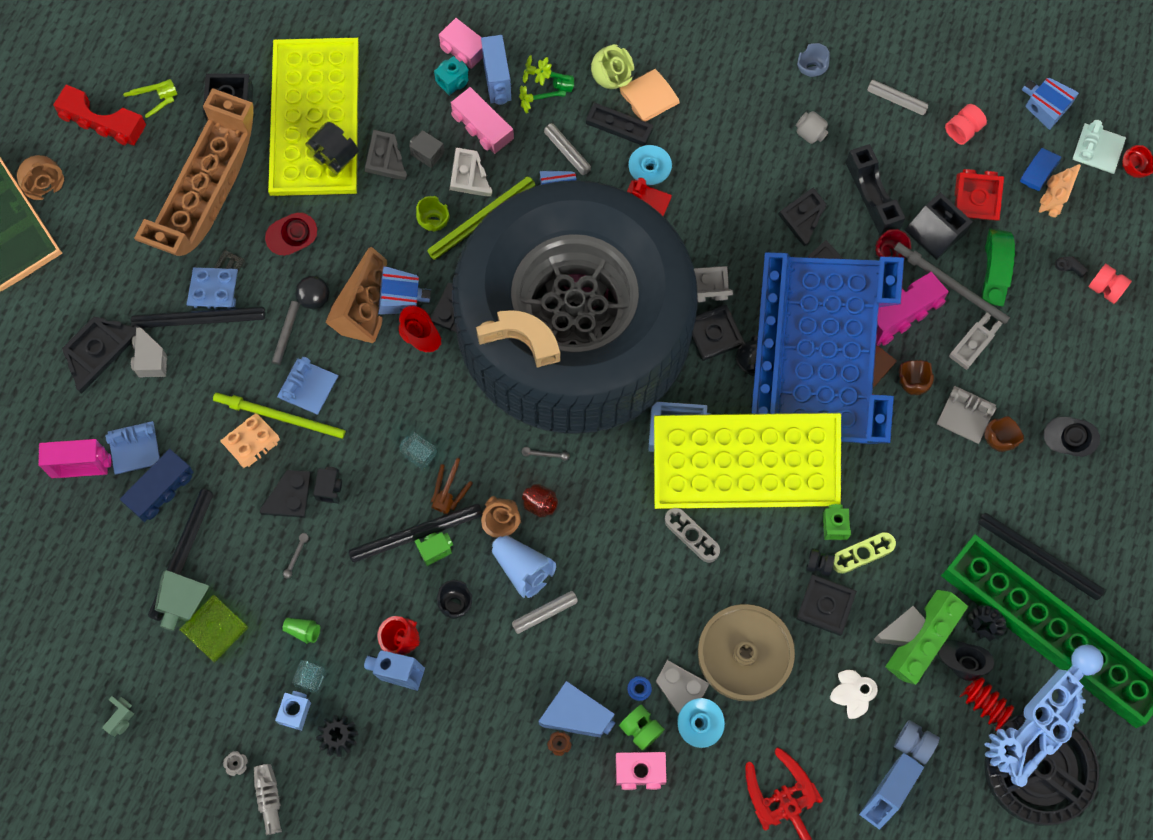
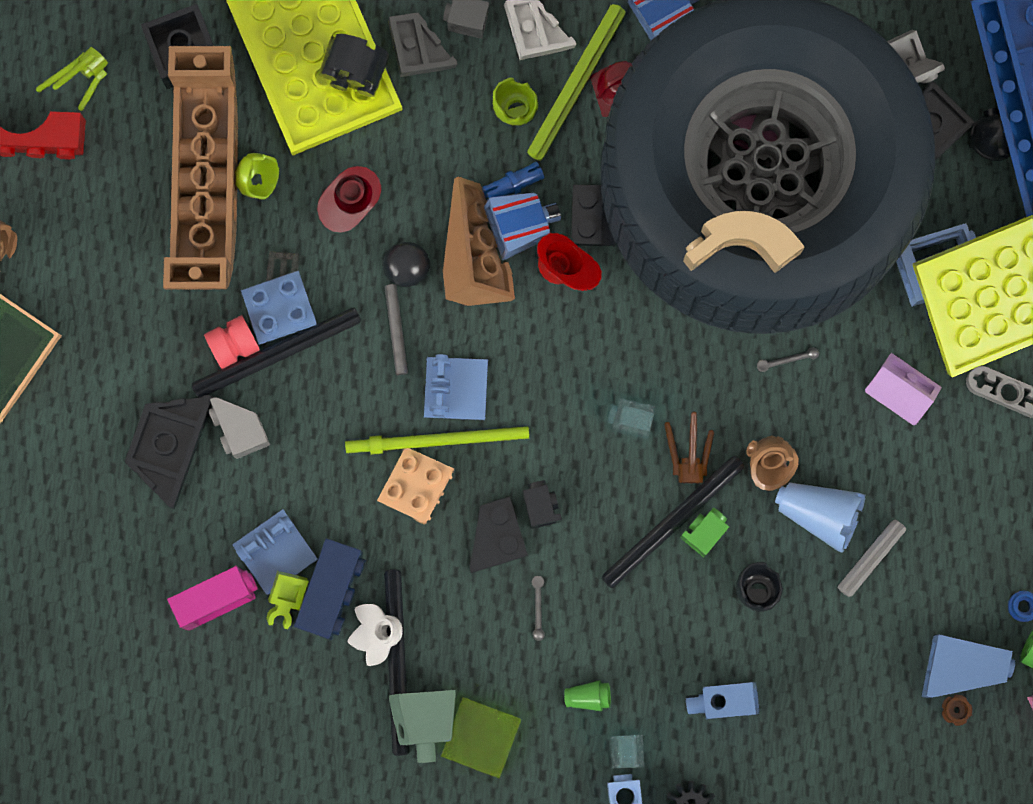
camera: 20 degrees left, 10 degrees up
(126, 477) = (286, 594): none -> lime plate
(170, 297) = (231, 342): none -> coral wheel
(175, 528) = (372, 633): none -> white plate
(235, 191) = (259, 164): none -> lime hair
(398, 635) = (711, 659): red helmet -> none
(410, 265) = (514, 181): none -> blue pin
(539, 500) = (808, 422): clear red head -> none
(617, 503) = (903, 389): none -> lavender panel

